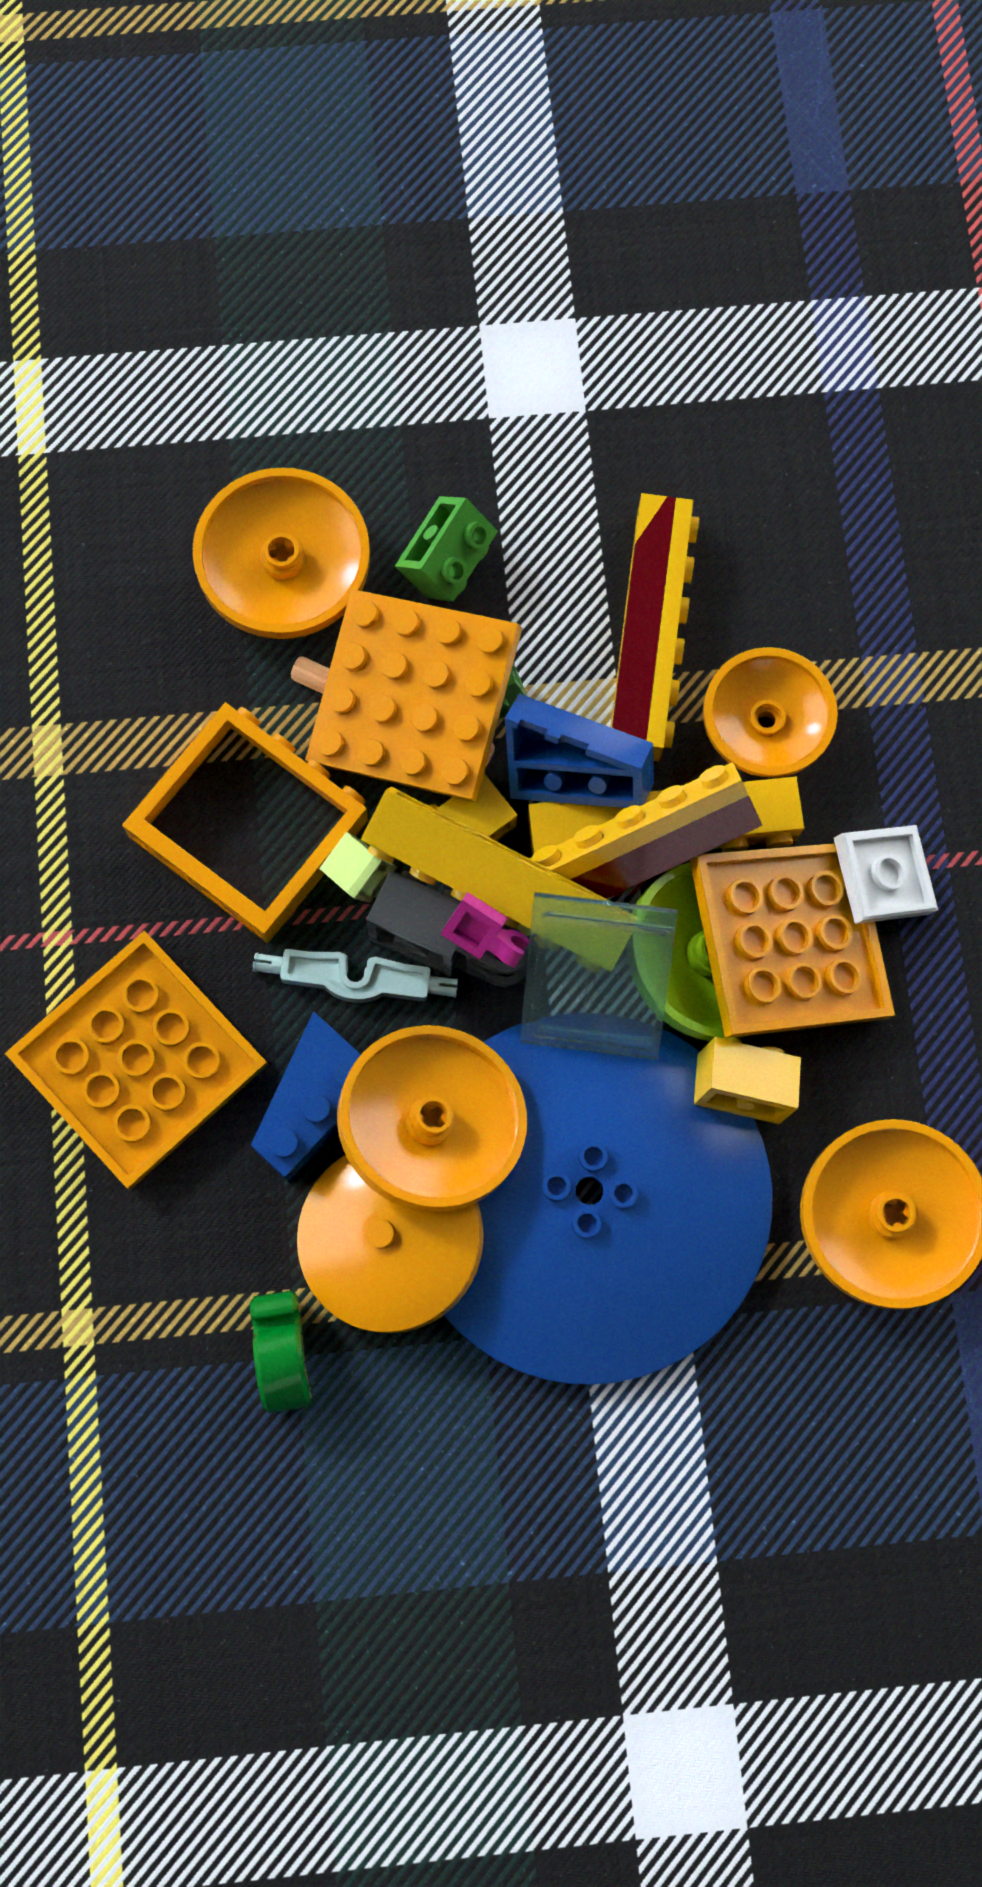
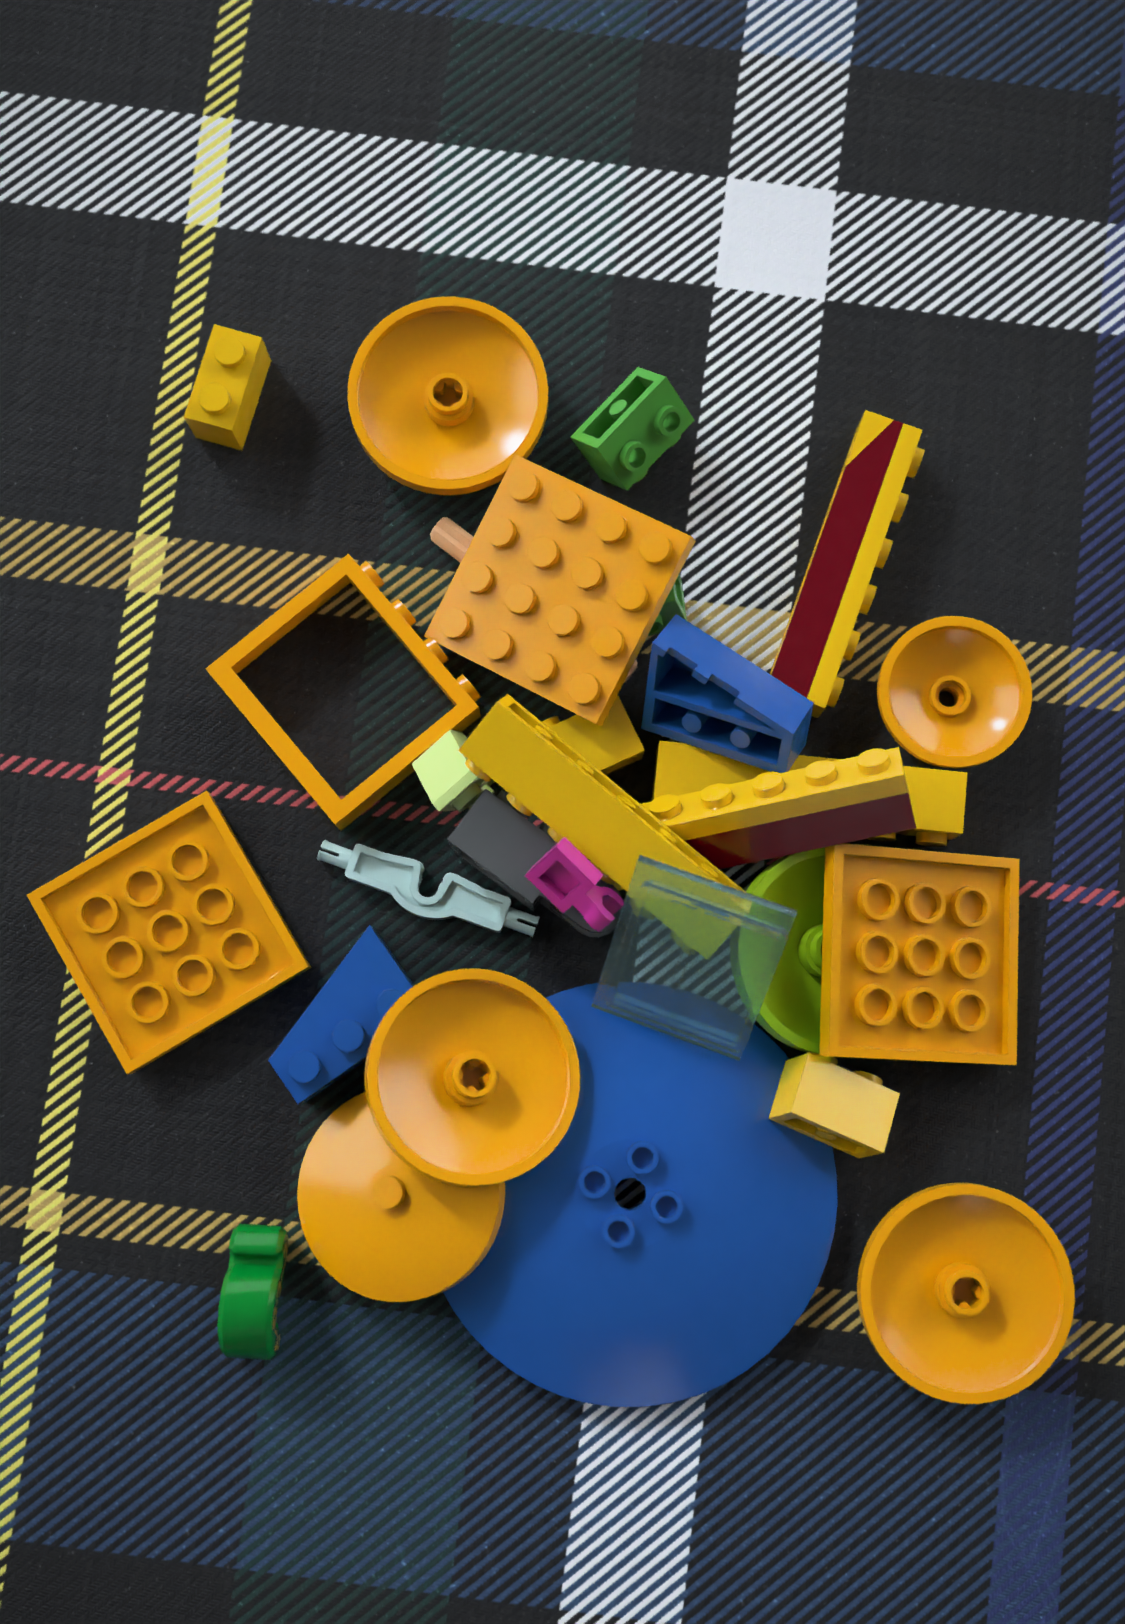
camera: 15 degrees right, 5 degrees up
(88, 584) = (227, 387): none -> yellow brick
(885, 874) = (1042, 902): white tile -> none

